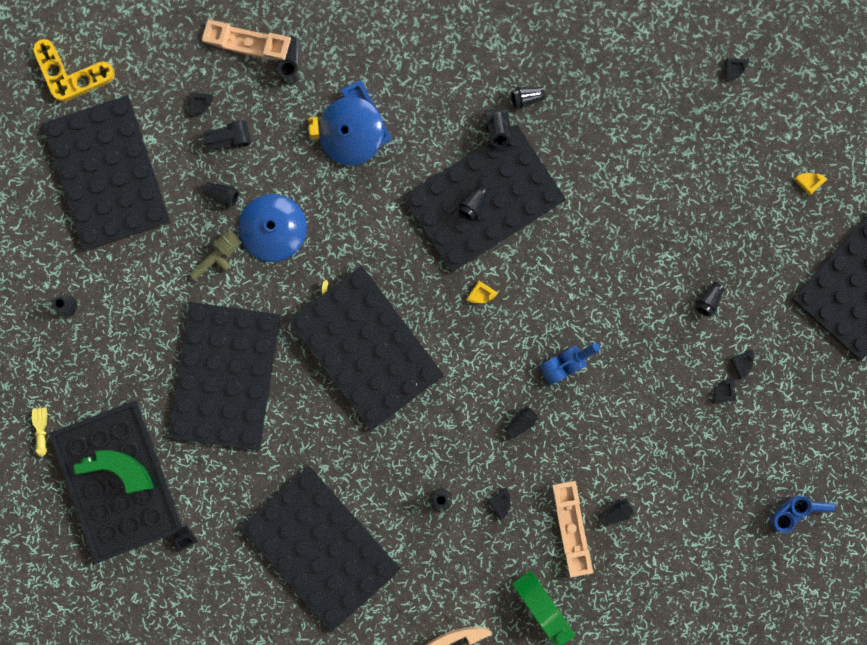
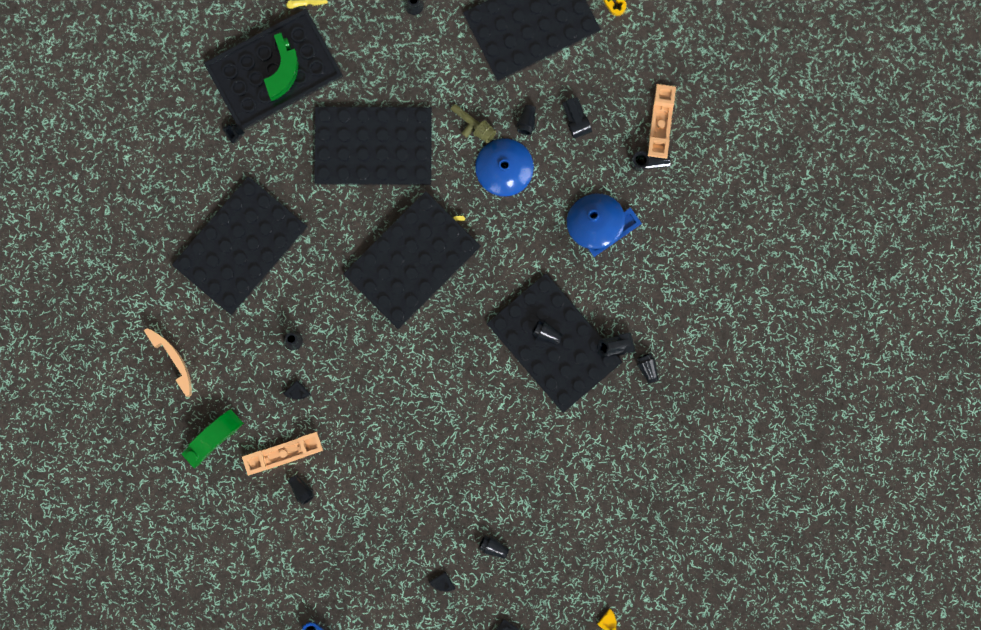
camera: 80 degrees right, 0 degrees up
(199, 103) = (602, 90): black tile -> none
(314, 128) = (590, 190): yellow tile -> none
(481, 294) = (472, 351): yellow tile -> none
(522, 421) = (367, 400): black cone -> none
(567, 363) = (421, 430): blue beam -> none
(724, 391) = (416, 570): black tile -> none
(734, 68) = (699, 545): black tile -> none

